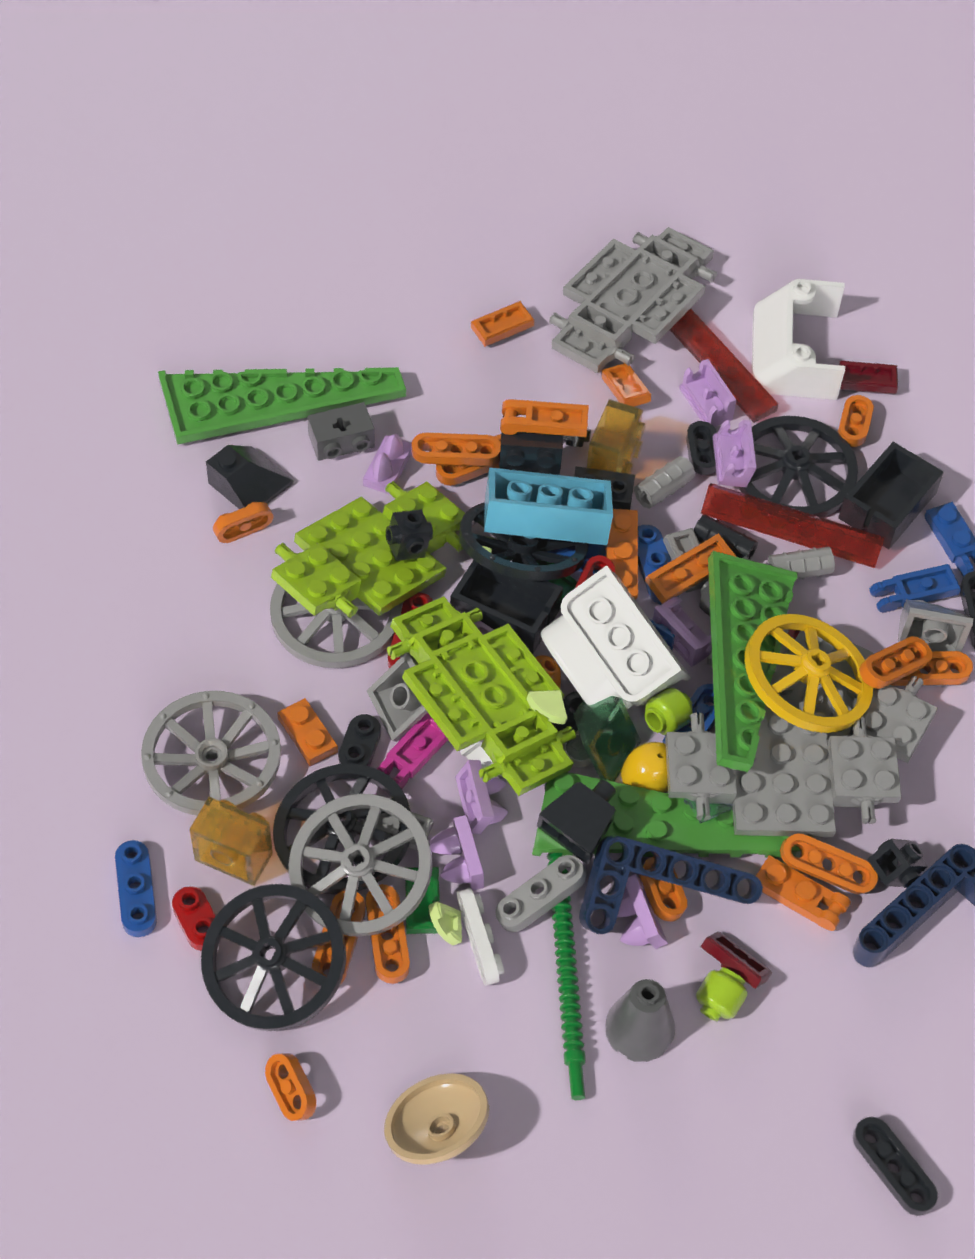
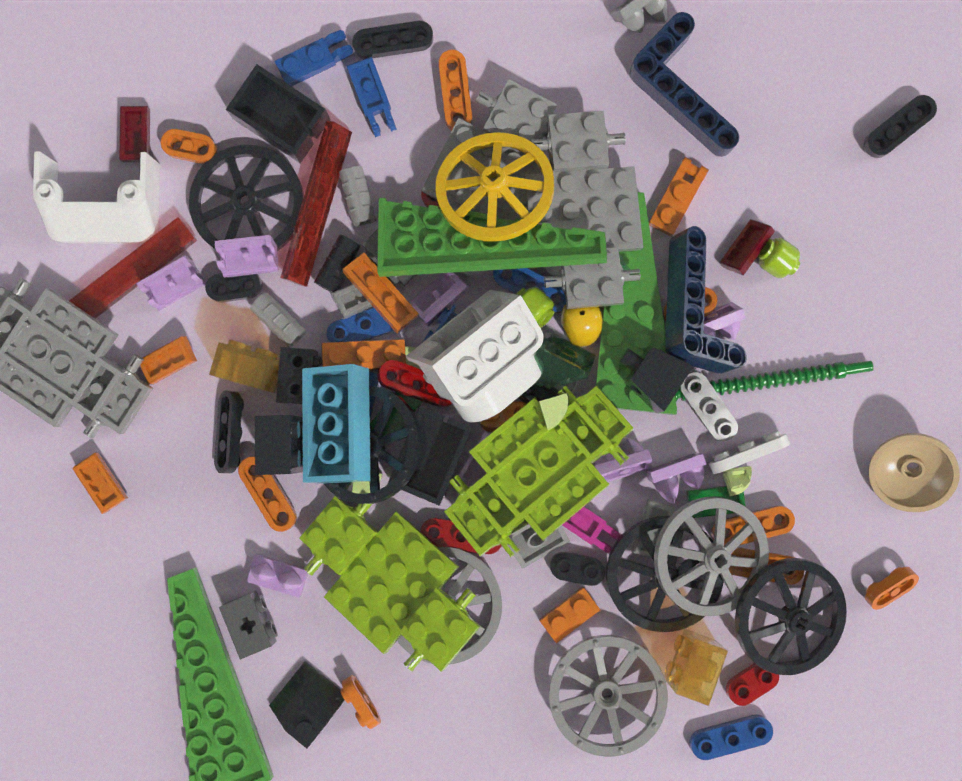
camera: 90 degrees left, 30 degrees up
(409, 535) = (387, 549): black brick -> none
(444, 444) = (265, 527): orange plate -> none
(544, 418) = (261, 433): orange plate -> none
(641, 1022) = (807, 320): dark grey cone -> none
(843, 863) = (663, 167): orange plate -> none
(895, 662) = (482, 124): orange plate -> none
(898, 862) = (652, 117): black brick -> none
(935, 625) = (415, 83): light grey slope -> none

